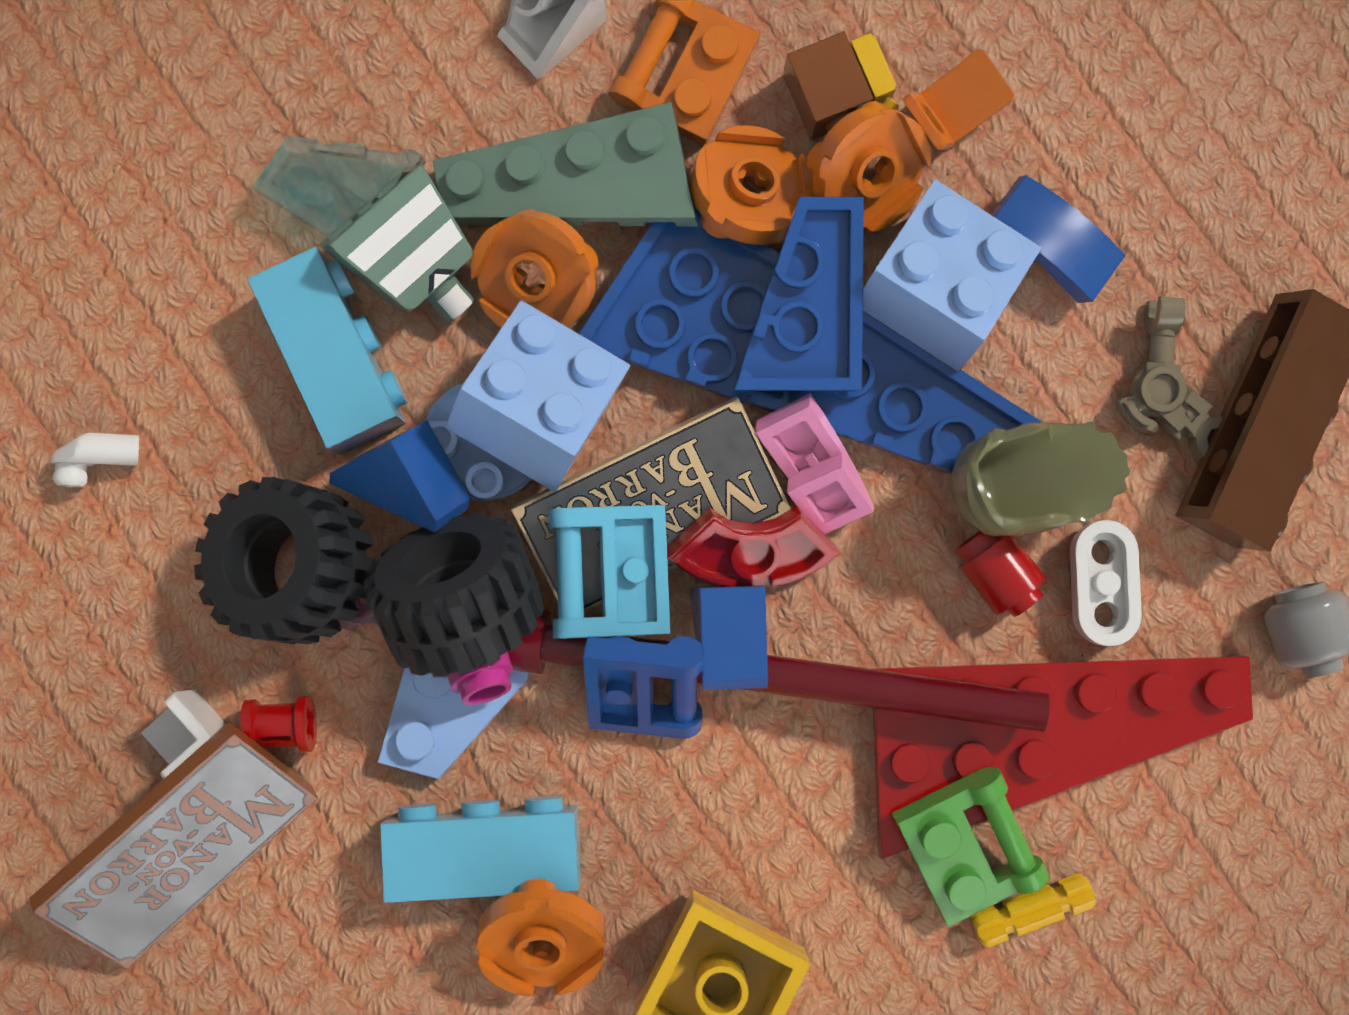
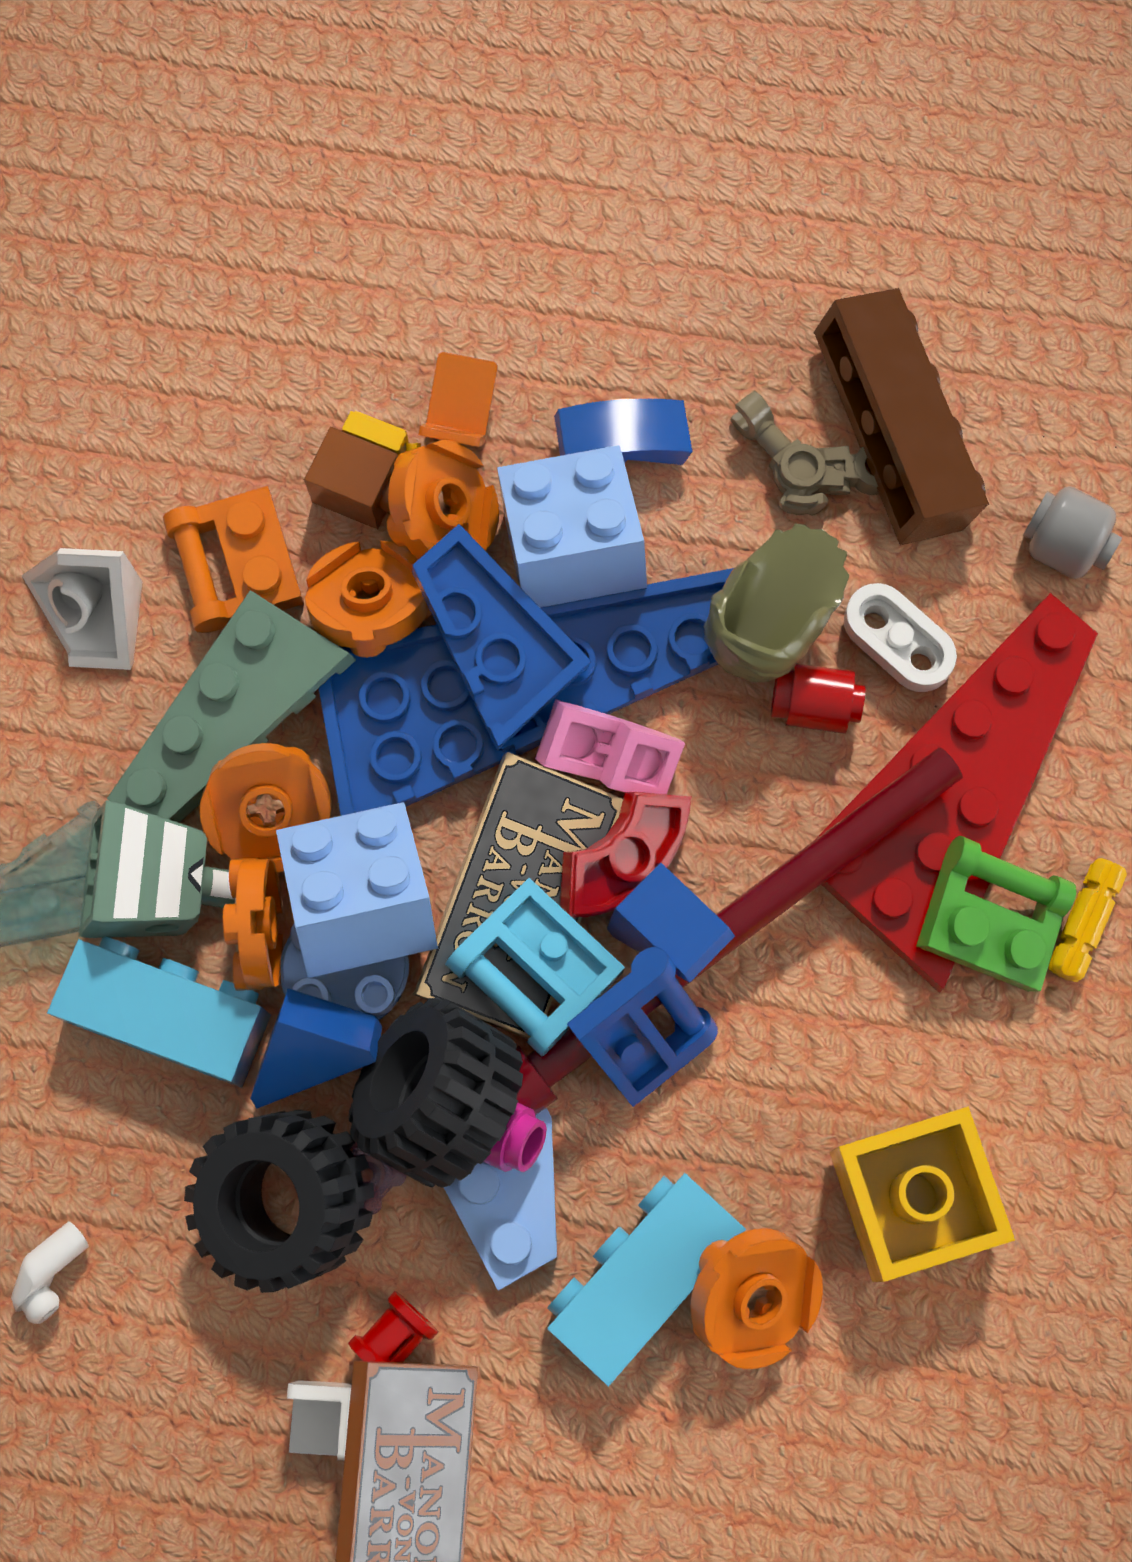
camera: 40 degrees left, 10 degrees down
(445, 351) = (254, 923): none -> orange plate

